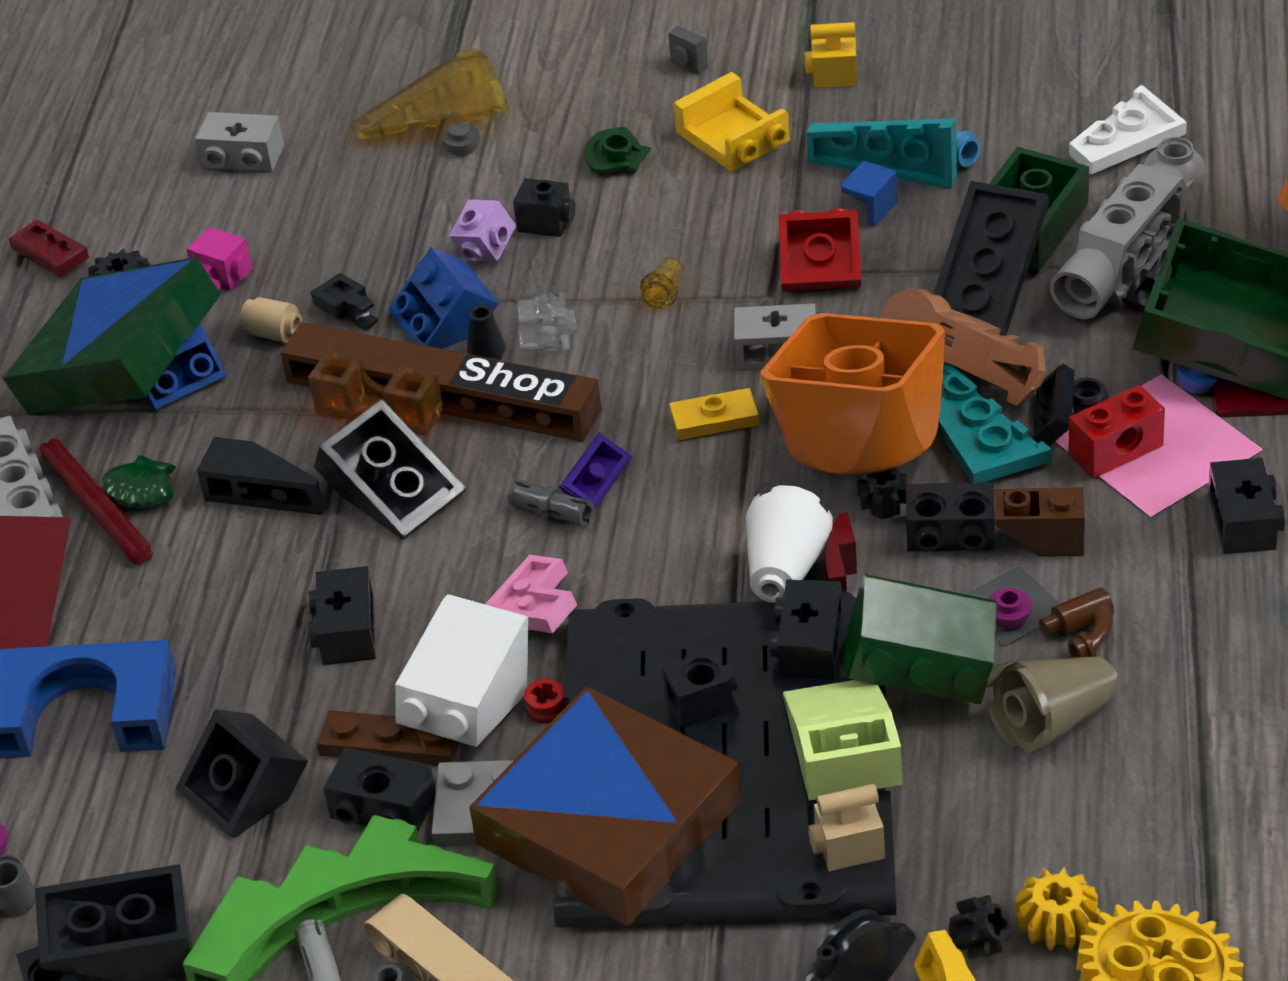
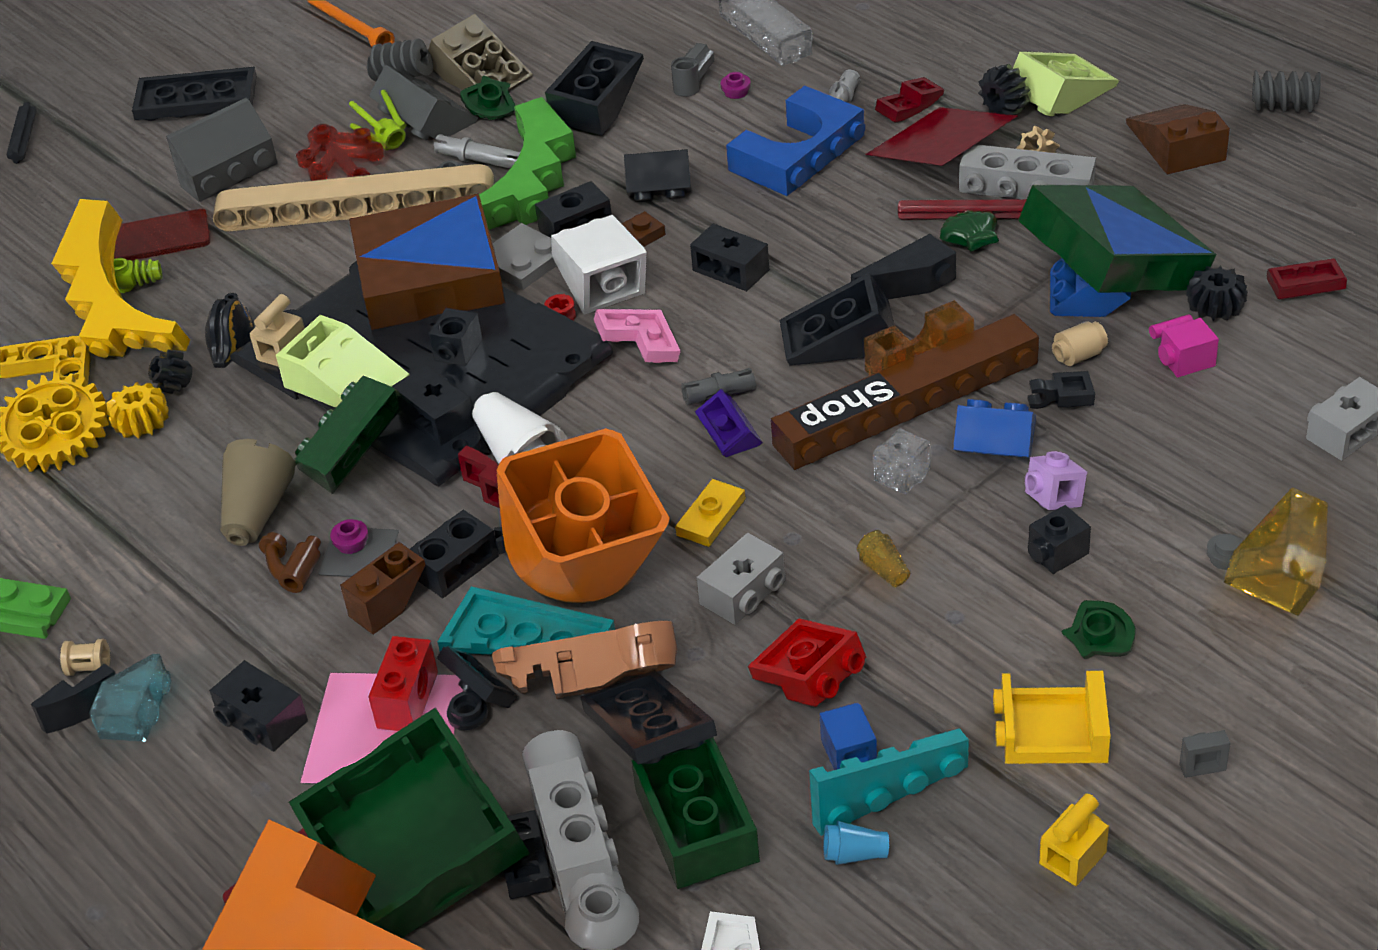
camera: 130 degrees right, 0 degrees up
(484, 334) = (927, 424): black cone -> none

